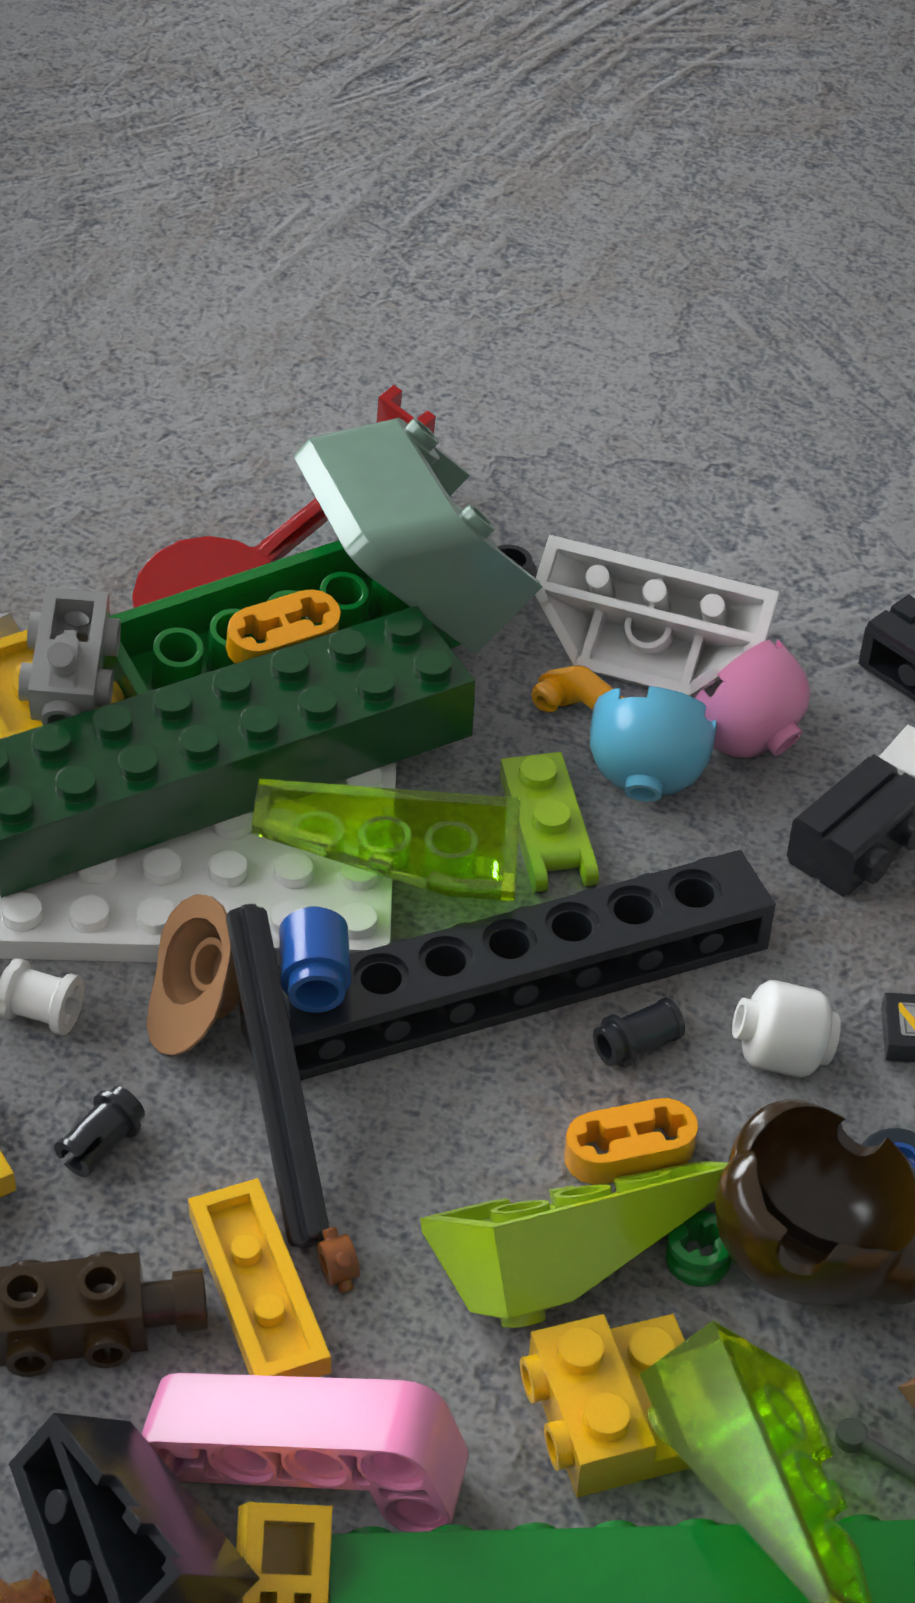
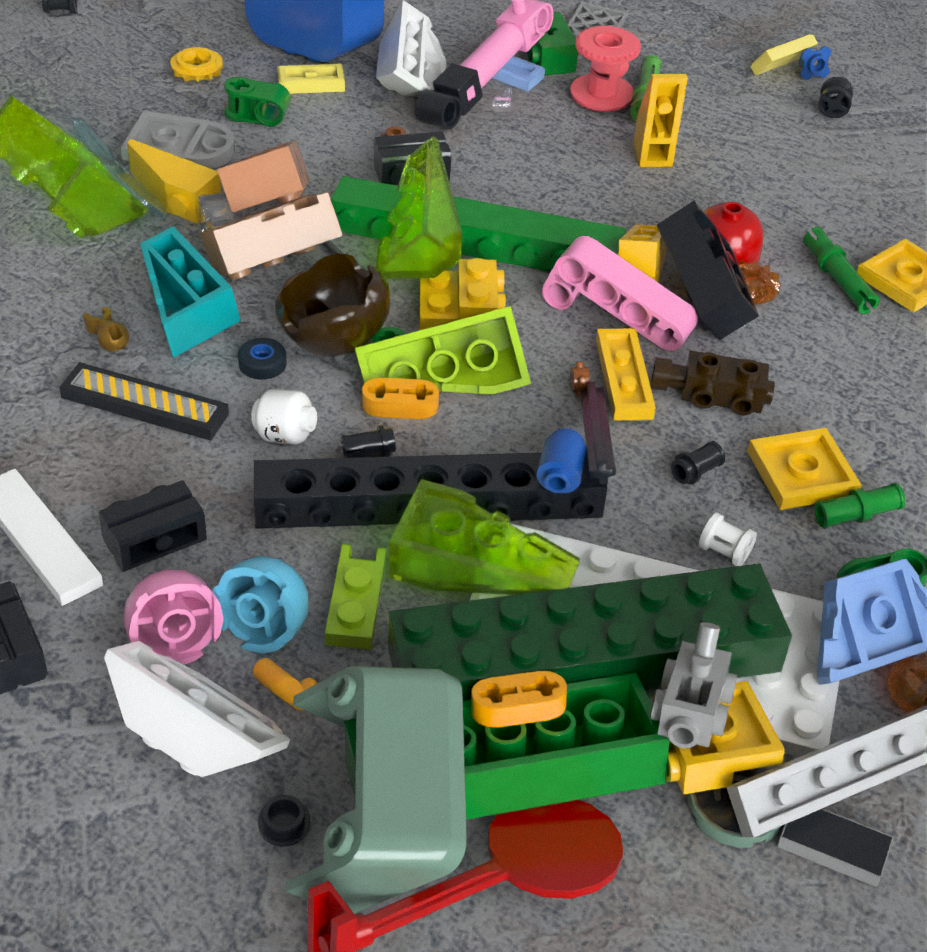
camera: 165 degrees left, 0 degrees up
(192, 976) = (625, 519): medium nougat piece -> none

